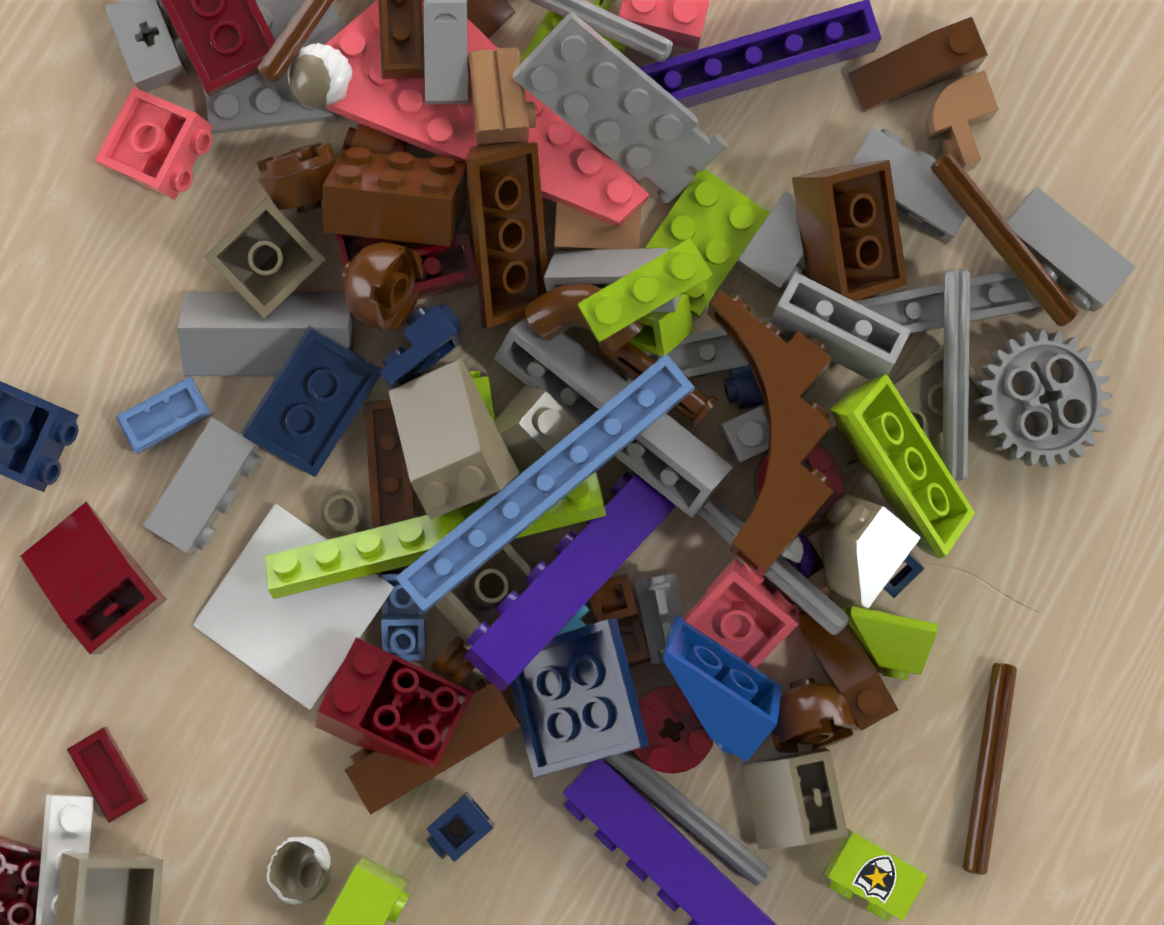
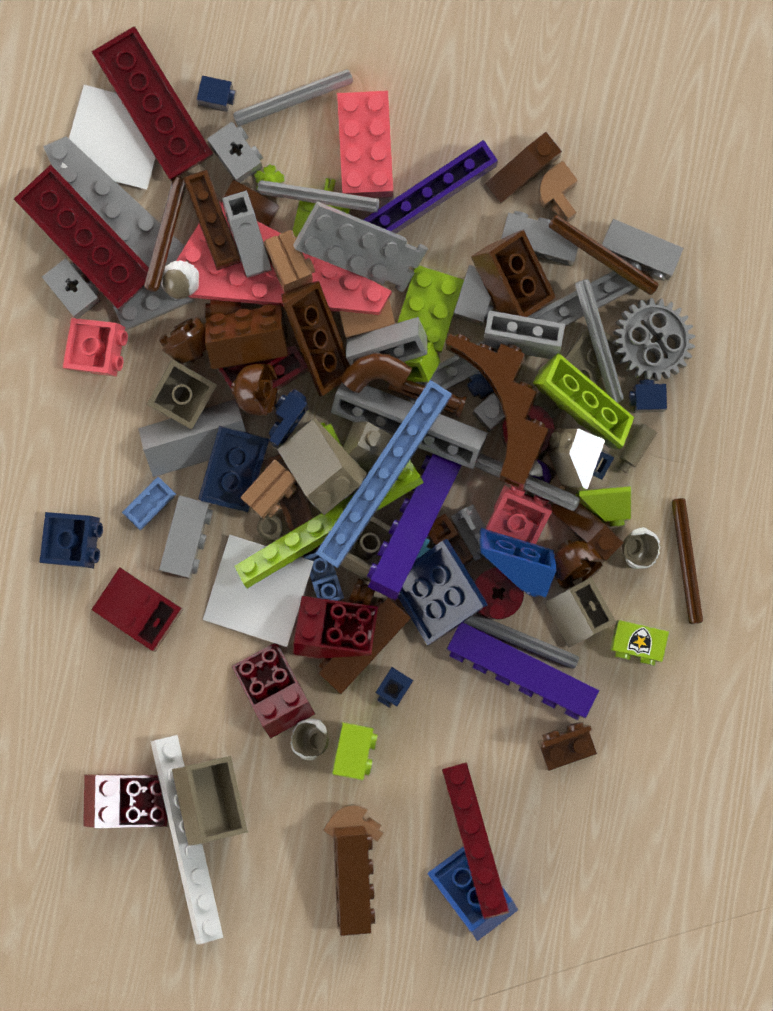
camera: 20 degrees left, 0 degrees up
(107, 774) = (181, 720): dark red tile -> none
(266, 773) = (273, 690): none -> dark red slope
(357, 452) = (270, 489): none -> medium nougat brick
(644, 289) = (406, 347): lime plate -> none
(922, 726) = (641, 548): none -> dark tan hair
(964, 562) = (636, 447): none -> dark tan cylinder
(1007, 487) = (648, 397): none -> dark blue brick

